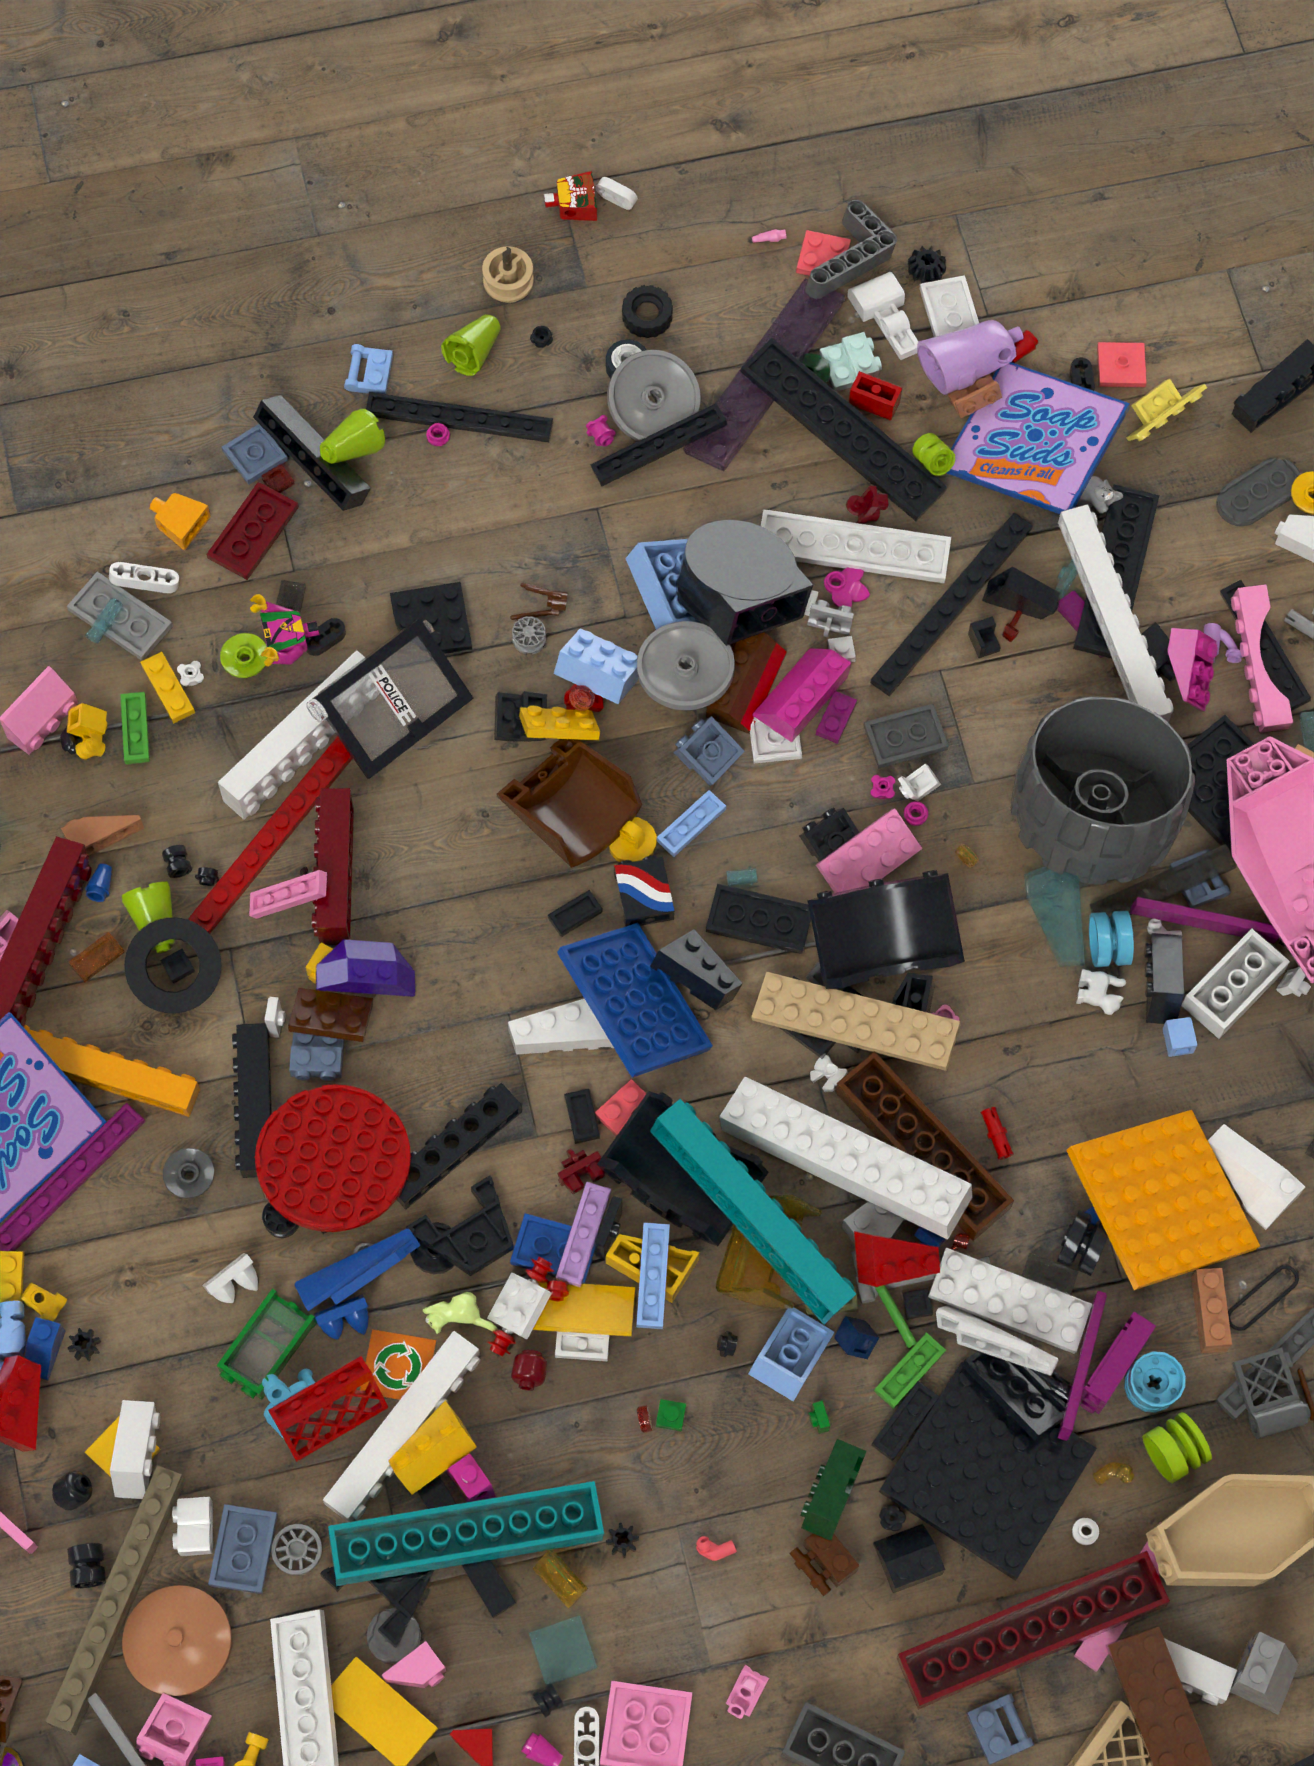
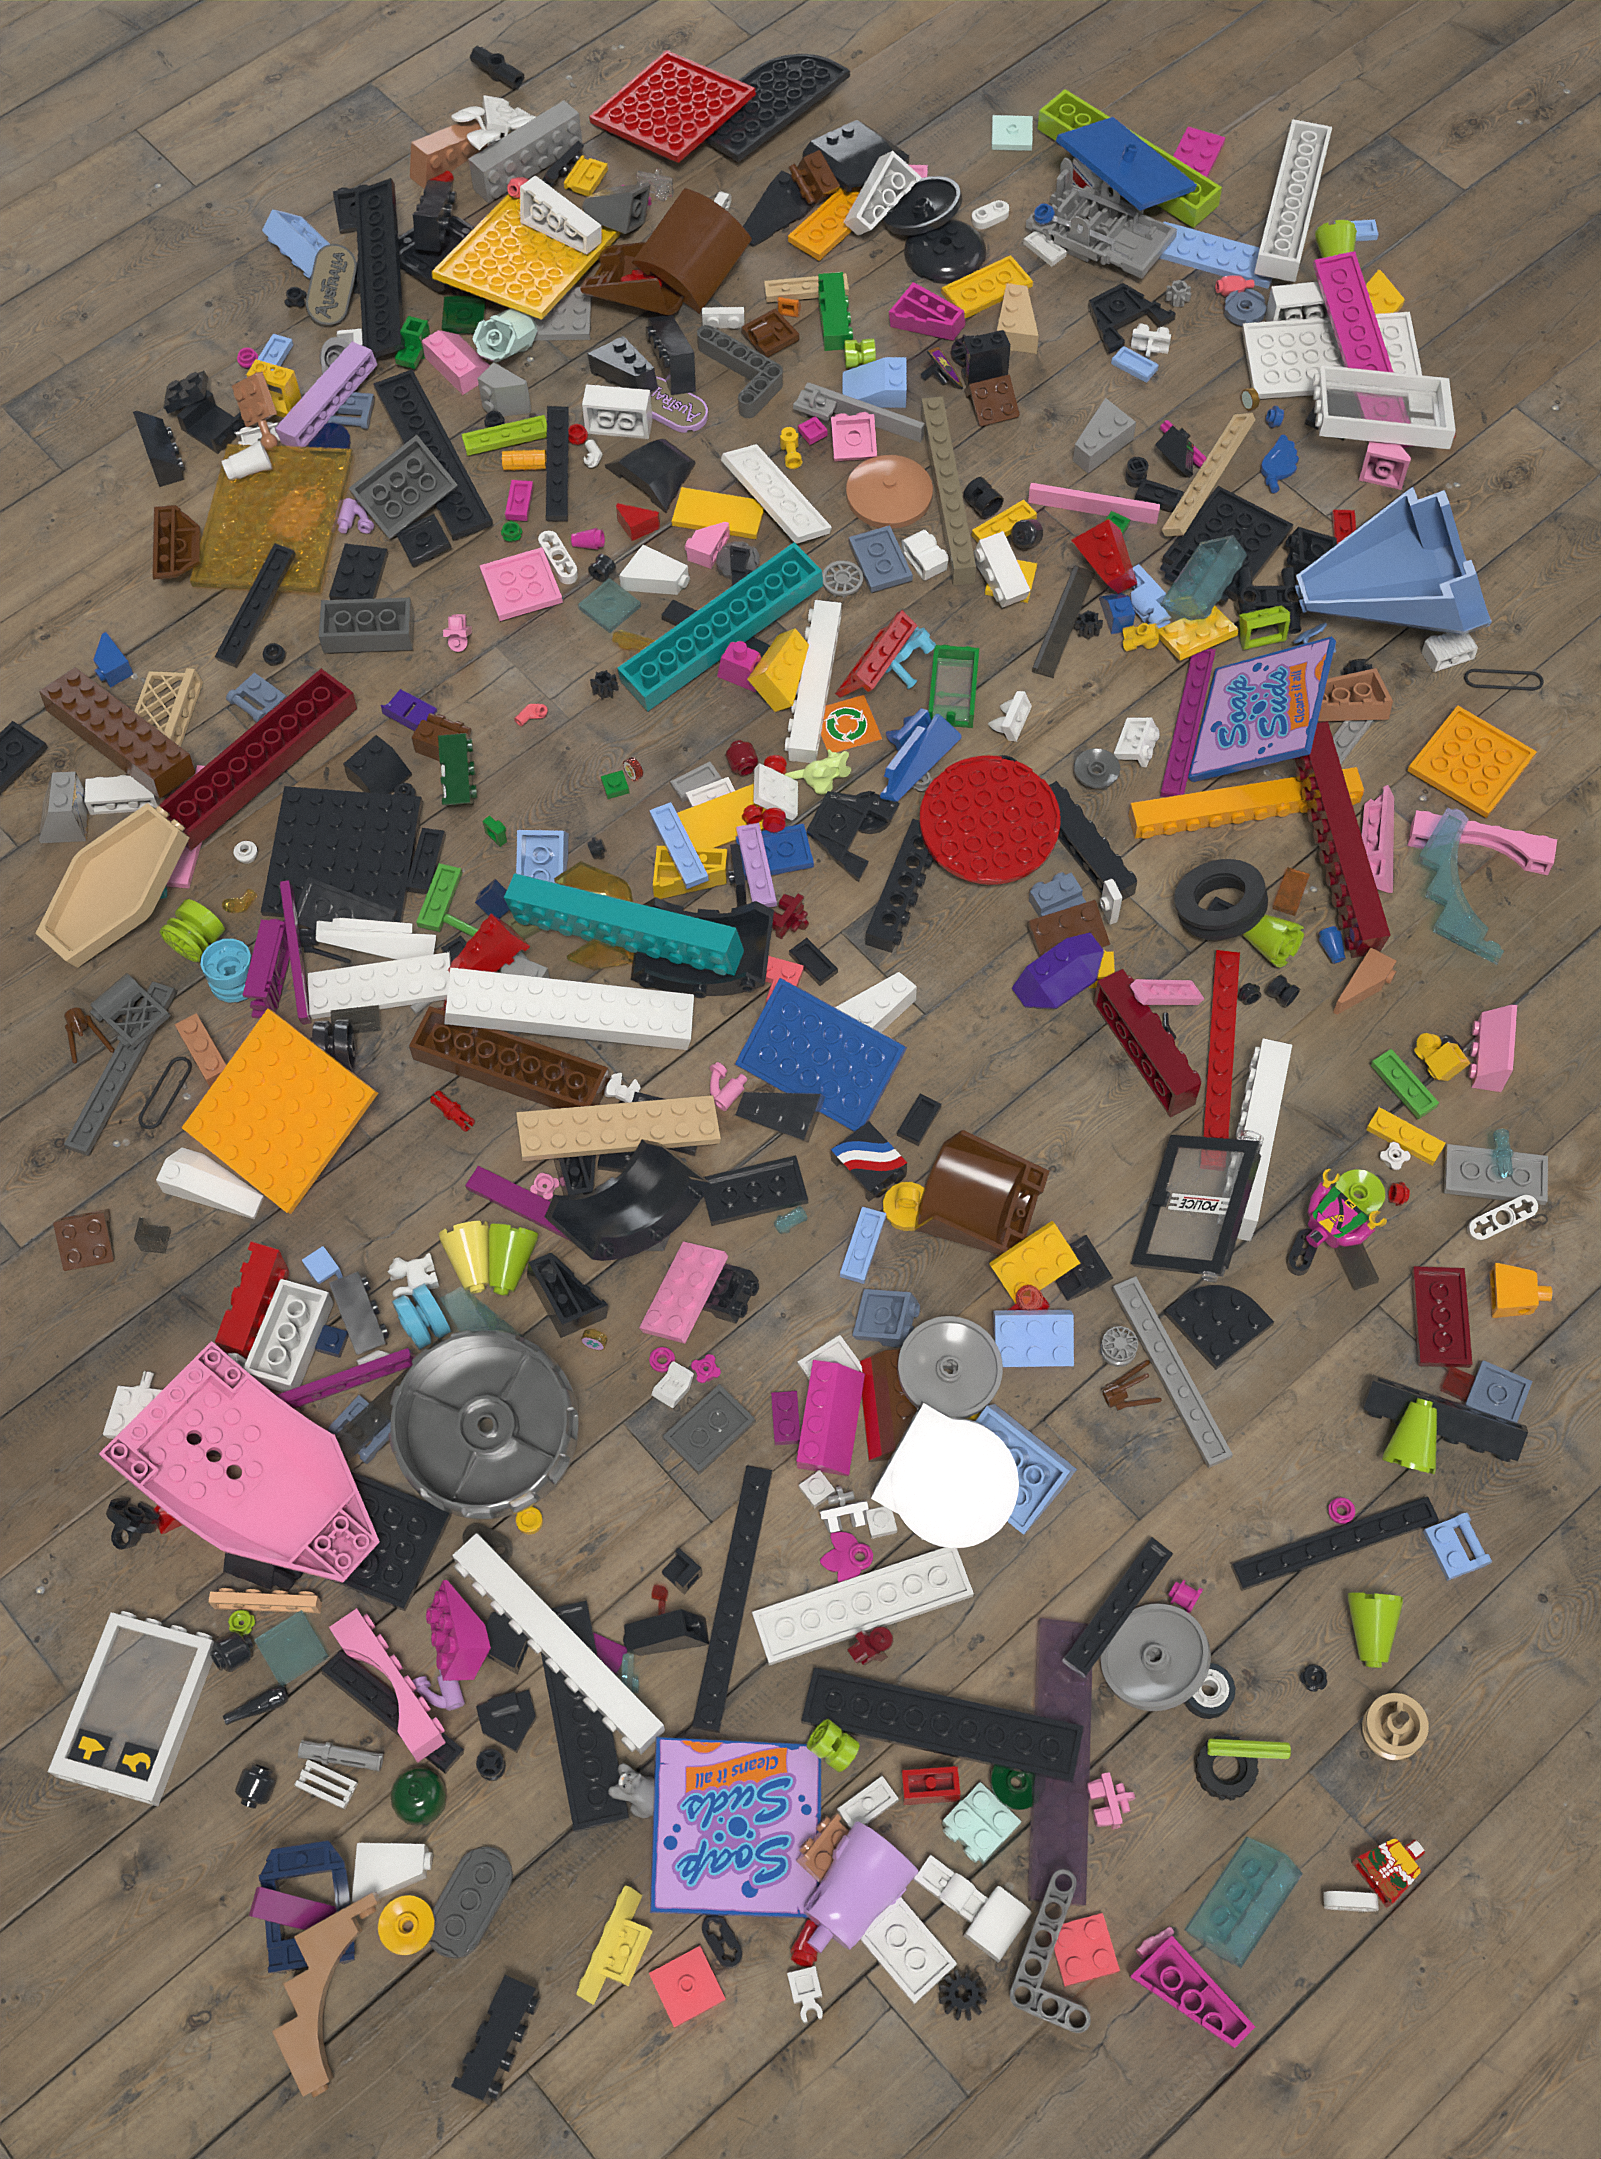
camera: 155 degrees right, 5 degrees down
(85, 1522) = (1004, 521): none -> yellow plate
(104, 1368) = (1063, 622): none -> clear smoke tile
(128, 1185) = (1137, 740): none -> white bracket
(211, 641) = (1398, 1193): none -> red plate
(494, 1660) = (654, 573): none -> white slope
(499, 597) = (1172, 1372): none -> light grey plate
(587, 1375) = (694, 779): none -> light grey tile
(626, 305) = (1245, 1748): none -> lime axle
(692, 227) = (1244, 1901): none -> clear light blue slope
(731, 1022) = (730, 1092): none -> bright pink plant
(752, 321) = (1110, 1814): none -> bright pink hips
(766, 193) = (1189, 1989): none -> dark pink wedge
(835, 1609) = (401, 704): none -> dark purple piece
(927, 411) = (868, 1803): none -> white plate
(972, 1016) = (511, 1197): none -> magenta tile
(976, 899) = (564, 1297): none -> black wedge
(1006, 963) = (508, 1256): none -> lime cone
(1037, 319) = (805, 1989): none -> white plate
(1042, 983) = (468, 1253): none -> light yellow cone
(1174, 600) = (507, 1718): none -> black plate
(1195, 970) = (332, 1341): none -> dark blue plate
(1203, 565) = (487, 1760): none -> black wheel
(1255, 1033) = (251, 1299): none -> red wedge
(1273, 572) = (418, 1796): none -> dark green cylinder

